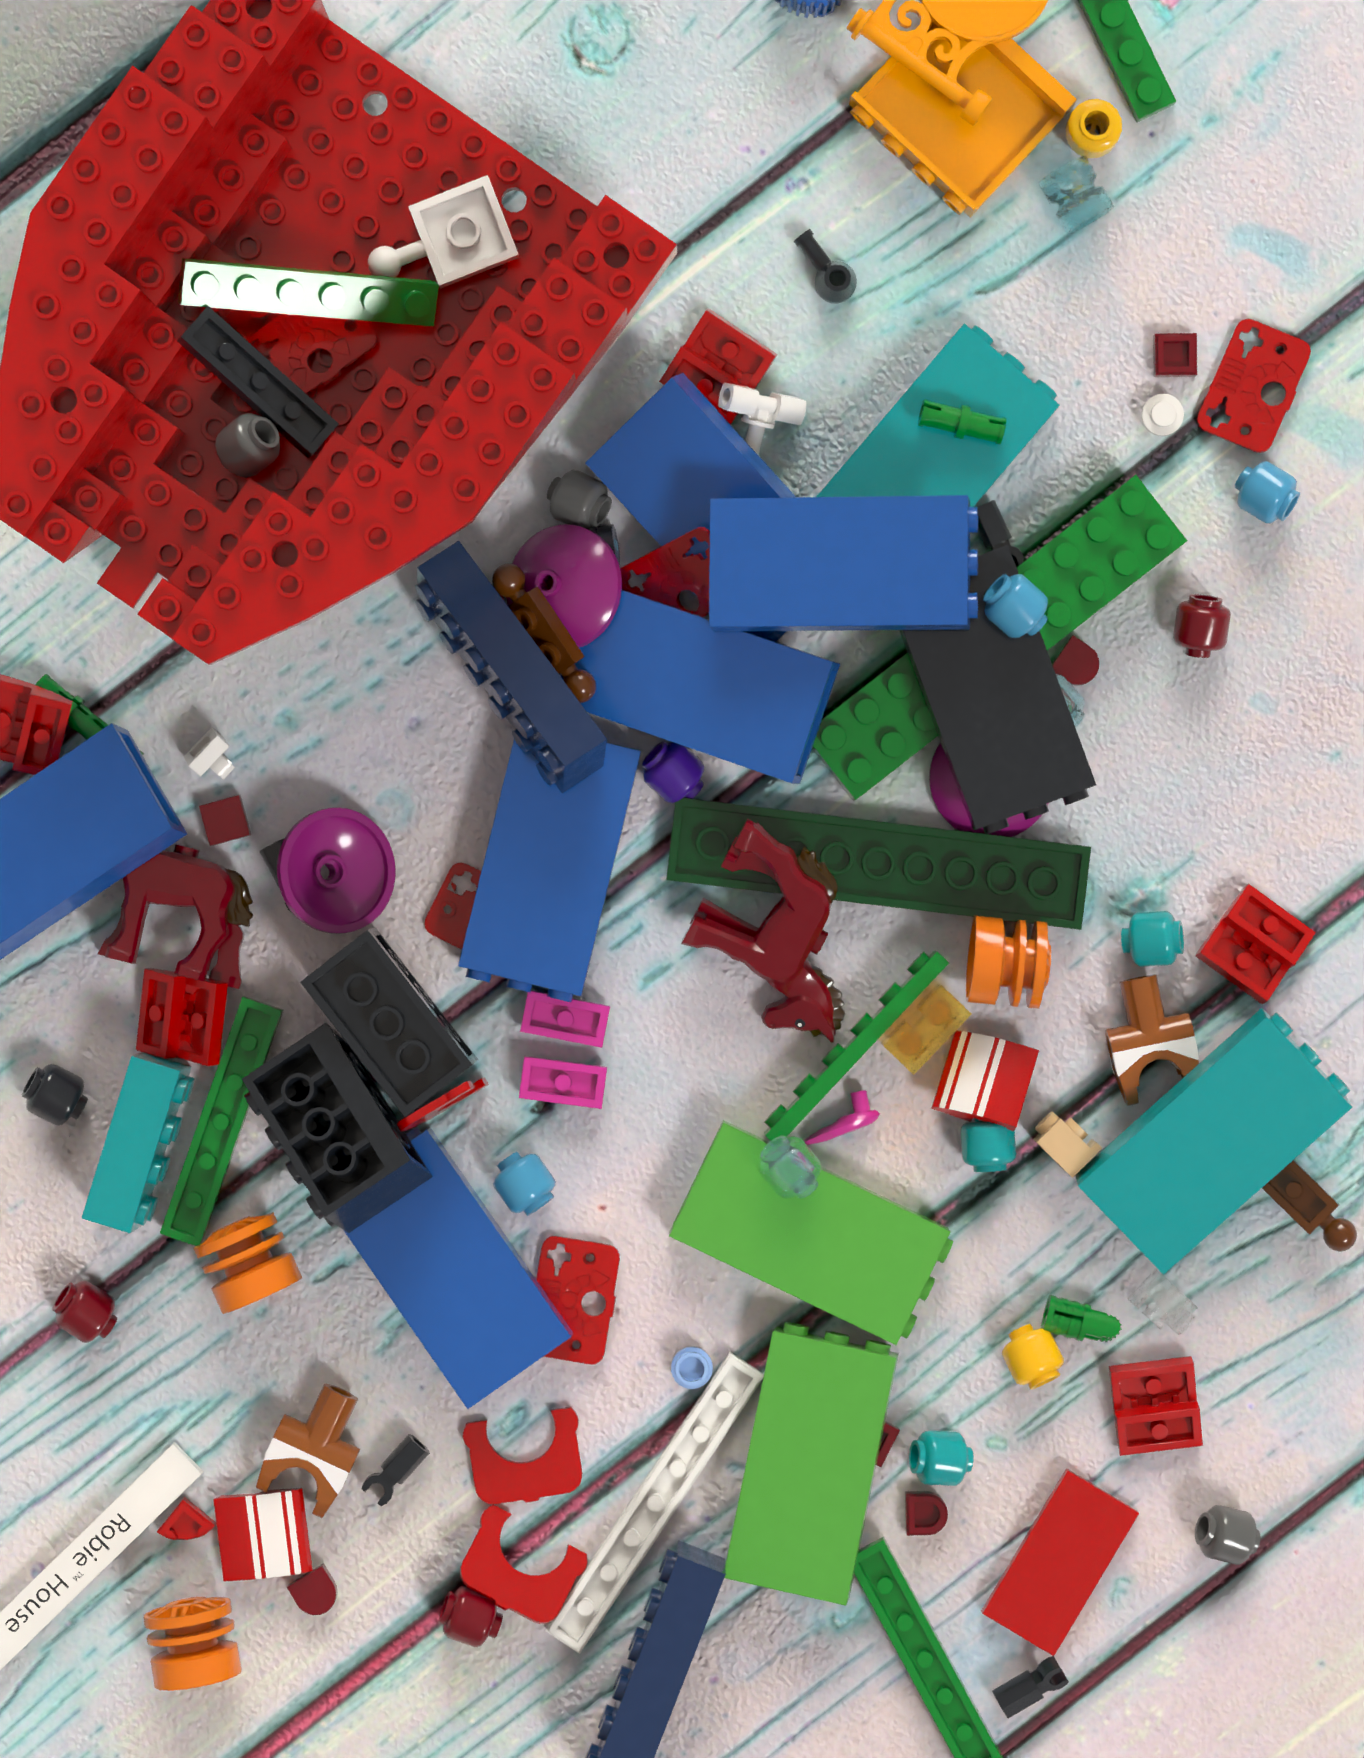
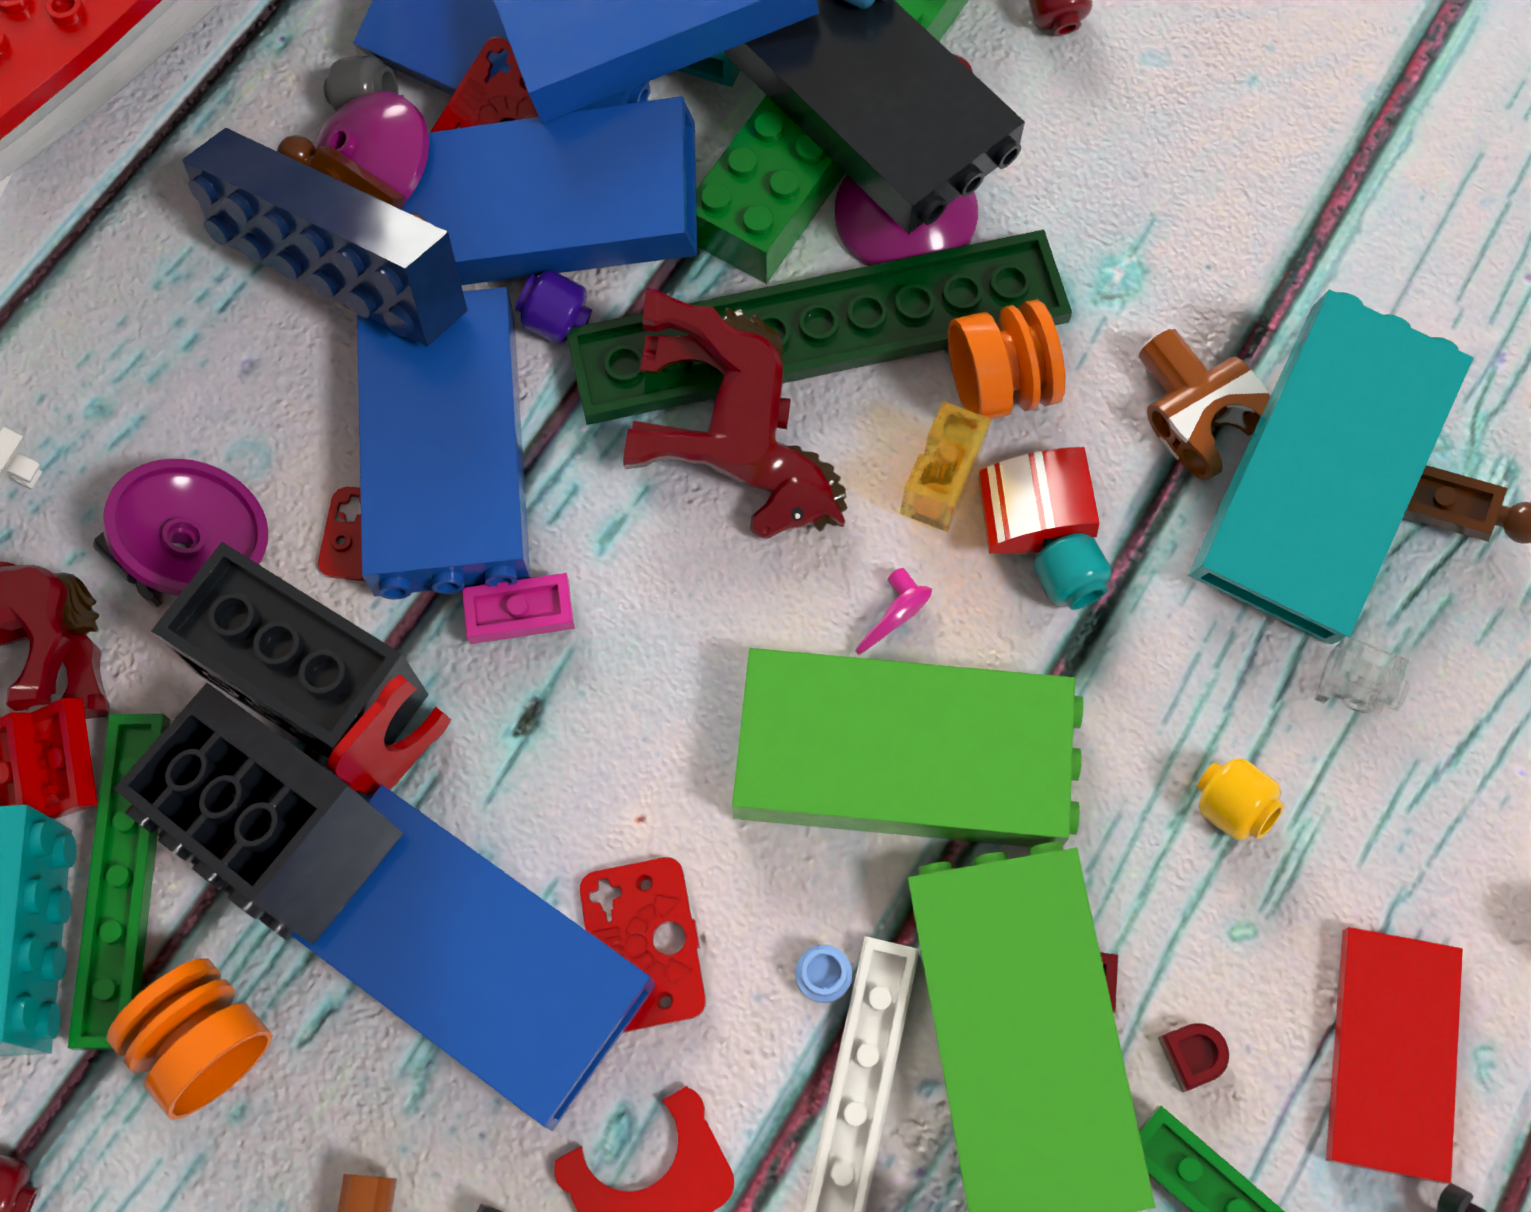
camera: 20 degrees left, 20 degrees down
(225, 820) = (46, 532): dark red tile -> none
(524, 1183) = (529, 814): dark azure head -> none
(563, 1082) = (539, 681): dark pink plate -> none
(789, 1167) = (849, 660): clear light blue head -> none
(867, 1032) = (878, 500): green plate -> none
(940, 1458) = (1185, 969): teal head -> none
(1065, 1143) = (1160, 542): tan brick -> none
(1078, 1321) = (1275, 737): green hinge -> none
(1153, 938) = (1155, 296): teal head -> none
(1155, 1405) = (1413, 810): red slope -> none
(1255, 944) = (1265, 273): red slope -> none

